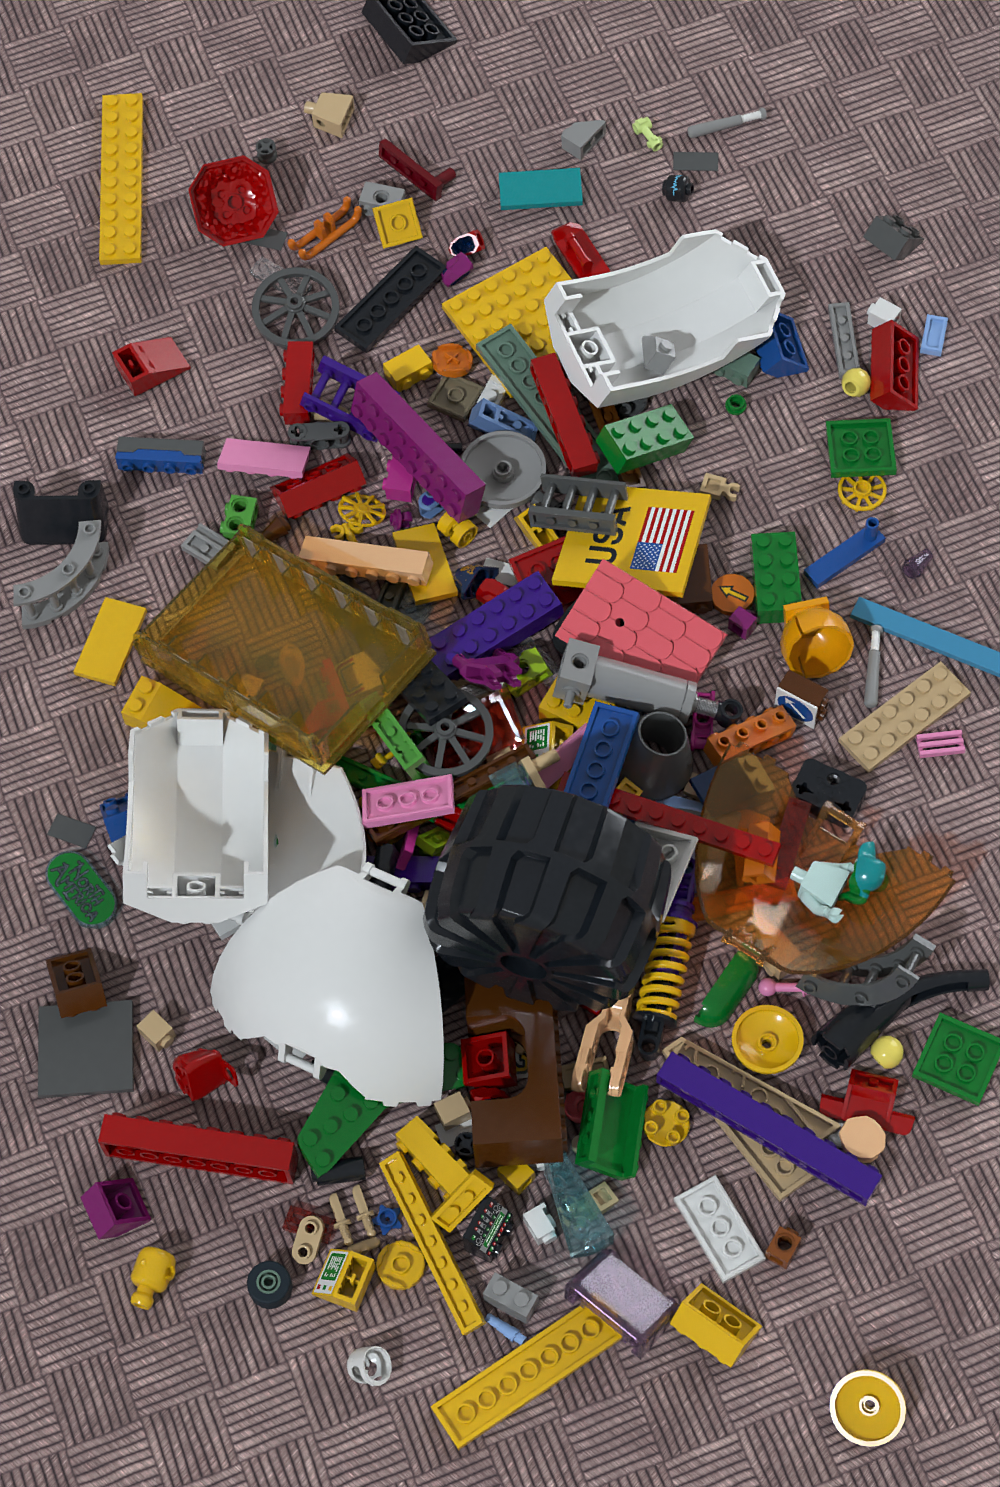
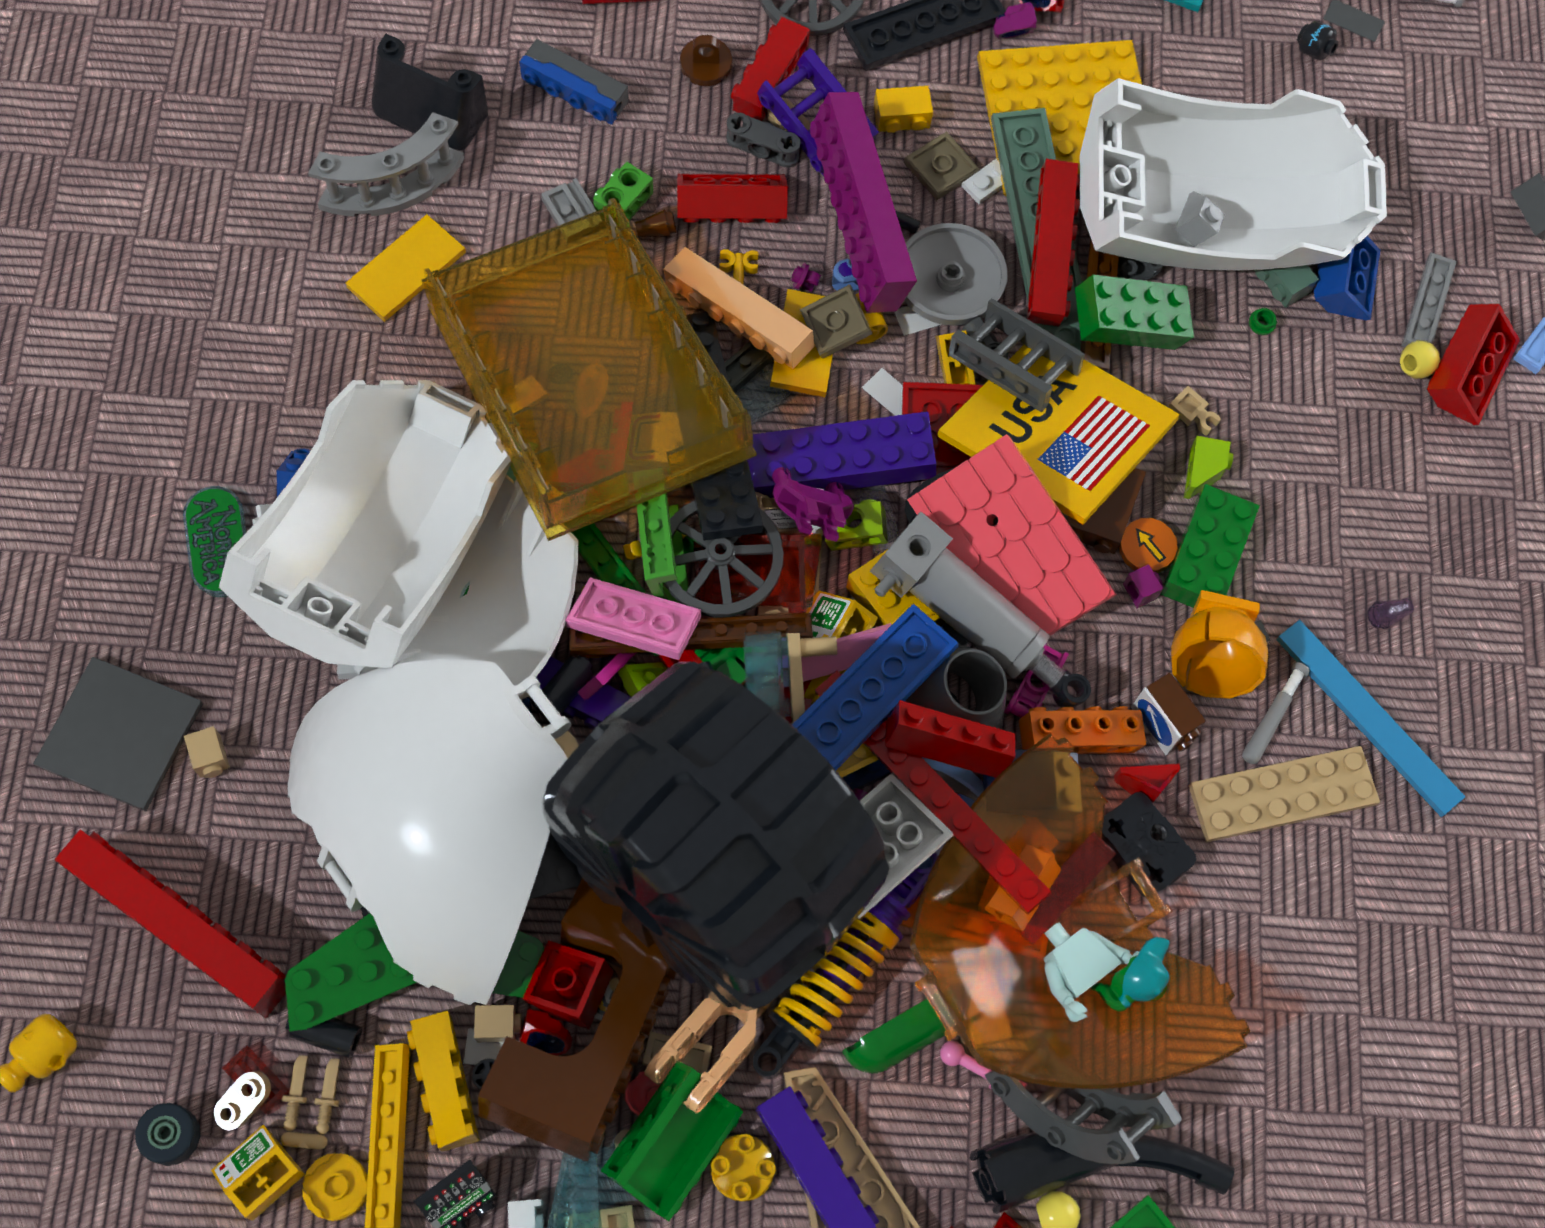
camera: 15 degrees right, 5 degrees up
(71, 830) = (245, 466): dark grey sticker -> none
(76, 983) = (145, 650): reddish brown slope -> none
(115, 1207) = (44, 945): magenta slope -> none
(150, 701) = (412, 358): yellow slope -> none
(202, 1072) = (227, 829): red piece -> none
(247, 397) = (706, 60): none -> reddish brown tile
(264, 458) = (686, 137): bright pink tile -> none
(361, 510) = (766, 247): yellow wheel -> none
(385, 1213) = (351, 1110): blue plate -> none
(399, 483) = (823, 235): dark pink brick -> none
(440, 538) = (836, 321): none -> dark tan tile
(452, 360) = (958, 122): orange tile -> none
(462, 1200) = (441, 1151): yellow plate -> none
(470, 577) = (853, 387): dark blue hat -> none
(489, 589) = (864, 407): red rock -> none
(491, 417) = (969, 207): medium blue slope -> none
(516, 1177) = (528, 1150): yellow brick -> none
(579, 250) = (1167, 59): red piece -> none
(664, 779) = (949, 739): none -> red brick
(745, 520) = (1206, 463): none -> lime slope
(768, 1025) = (933, 1108): yellow dish -> none
(808, 748) = (1146, 779): none -> red slope
(845, 554) = (1307, 560): blue piece -> none
(860, 448) = (1387, 440): green plate -> none
(861, 490) = (1364, 491): yellow wheel -> none
(882, 312) = (1491, 291): white brick -> none
(922, 739) = (1336, 855): bright pink tile -> none

